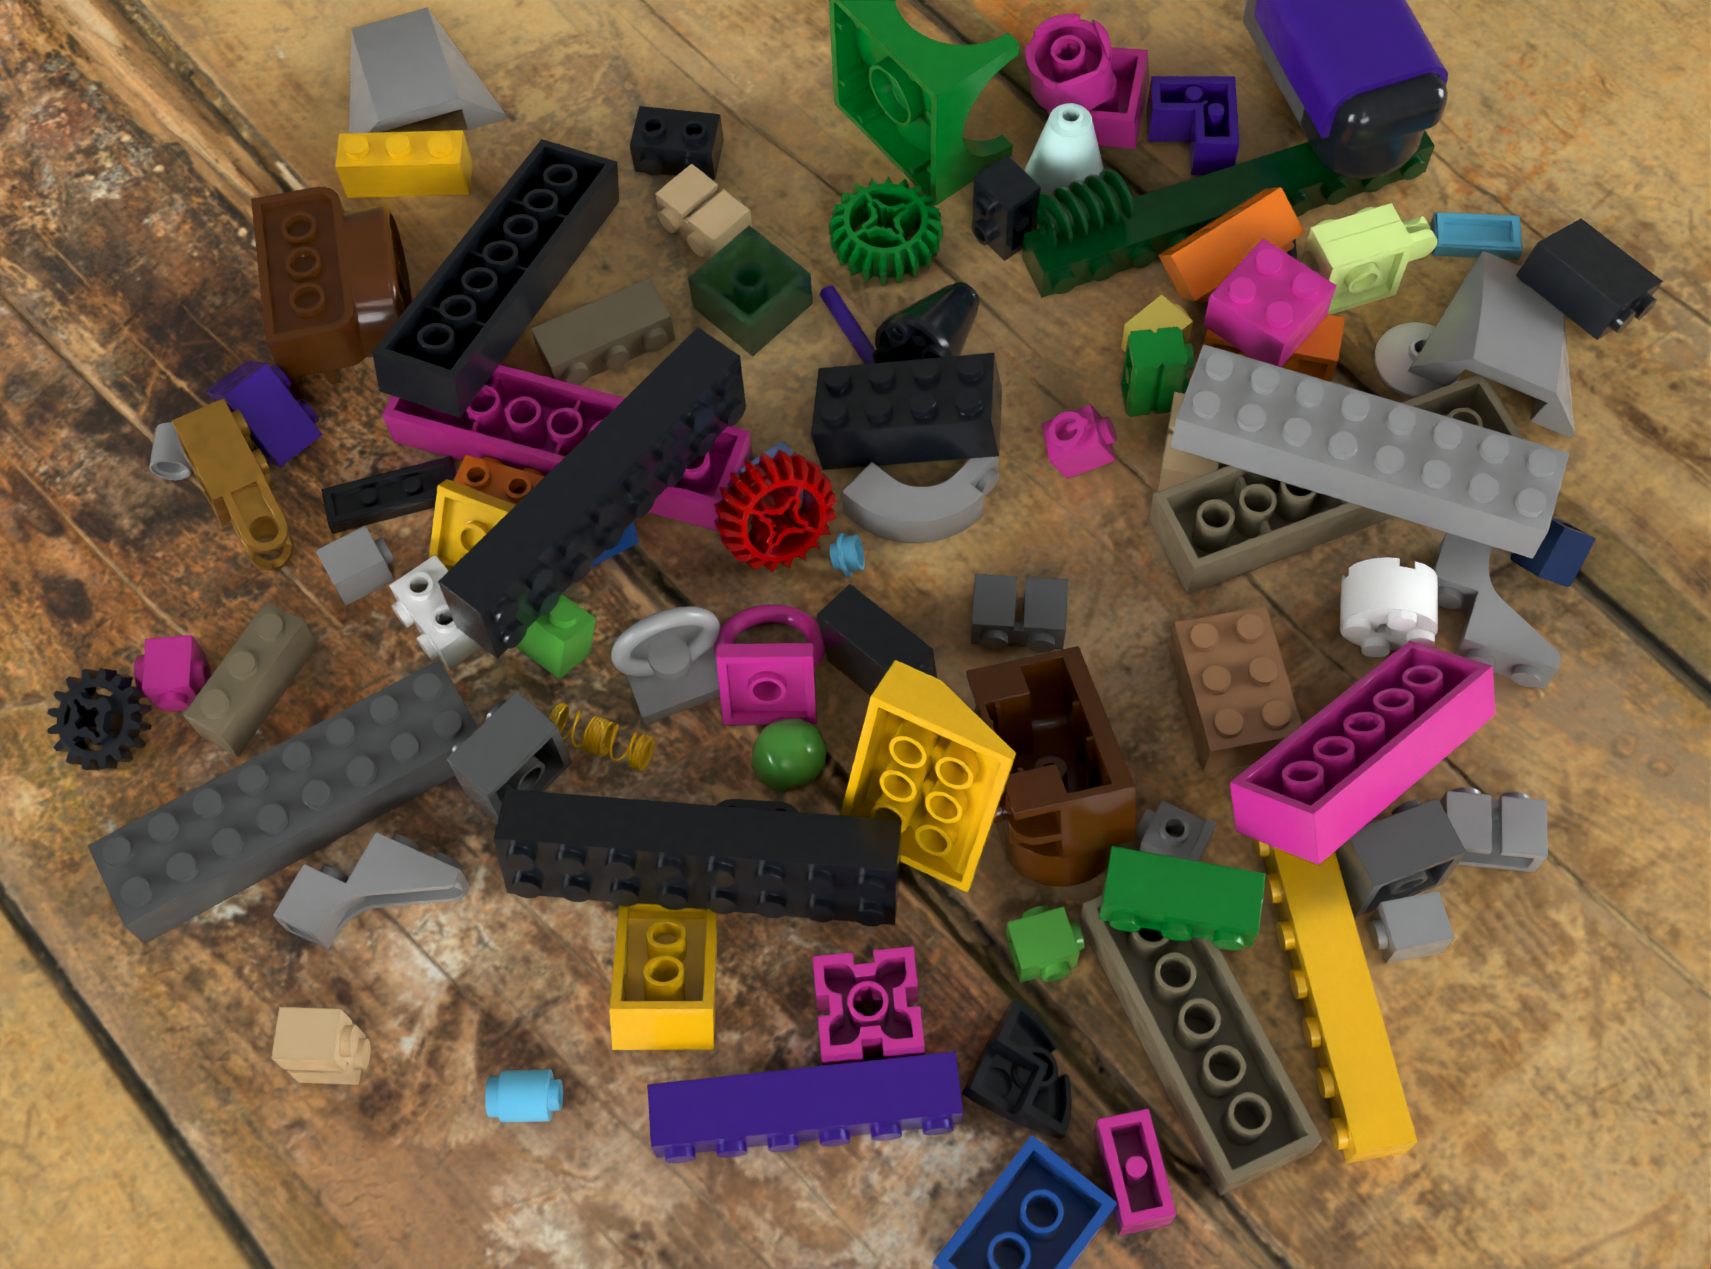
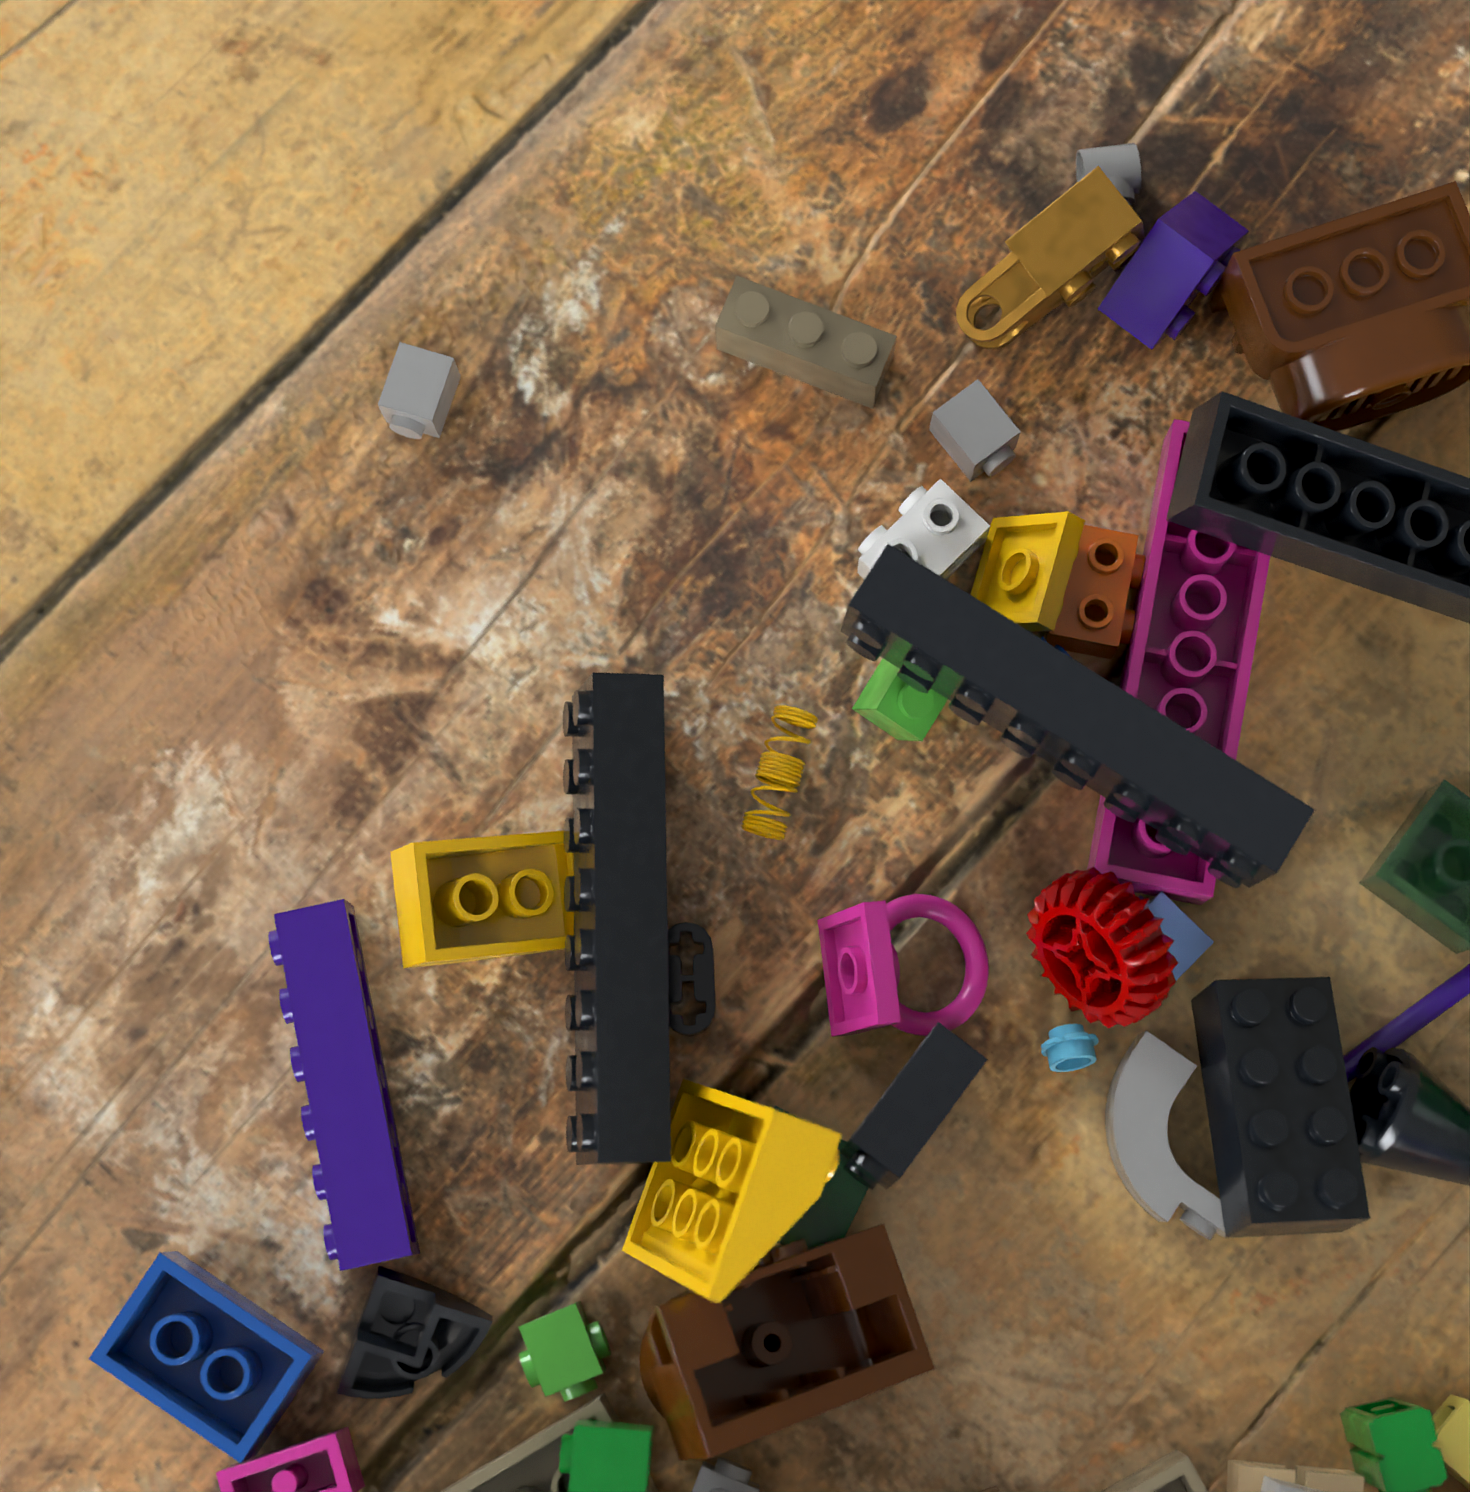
camera: 85 degrees right, 15 degrees up
(99, 719) = (732, 180): black gear -> none
(171, 671) = (804, 248): dark pink brick -> none
(213, 992) = (418, 391): none -> light grey brick
(283, 803) = (657, 427): dark grey brick -> none
(320, 1046) = (356, 524): tan piece -> none
(385, 876) = (577, 552): light grey arch -> none
(386, 495) = (1087, 451): black tile -> none
(509, 751) = (723, 667): dark grey brick -> none
(523, 1095) = (331, 760): medium azure brick -> none
(604, 333) = (1357, 680): dark tan brick -> none
(669, 661) = (889, 839): light grey tile -> none
(788, 754) = (783, 1008): bright green hair -> none
(885, 983) = (428, 1122): dark pink brick -> none
(1043, 613) = (1006, 1315): dark grey piece -> none
(1079, 441) = (1273, 1347): dark pink brick -> none

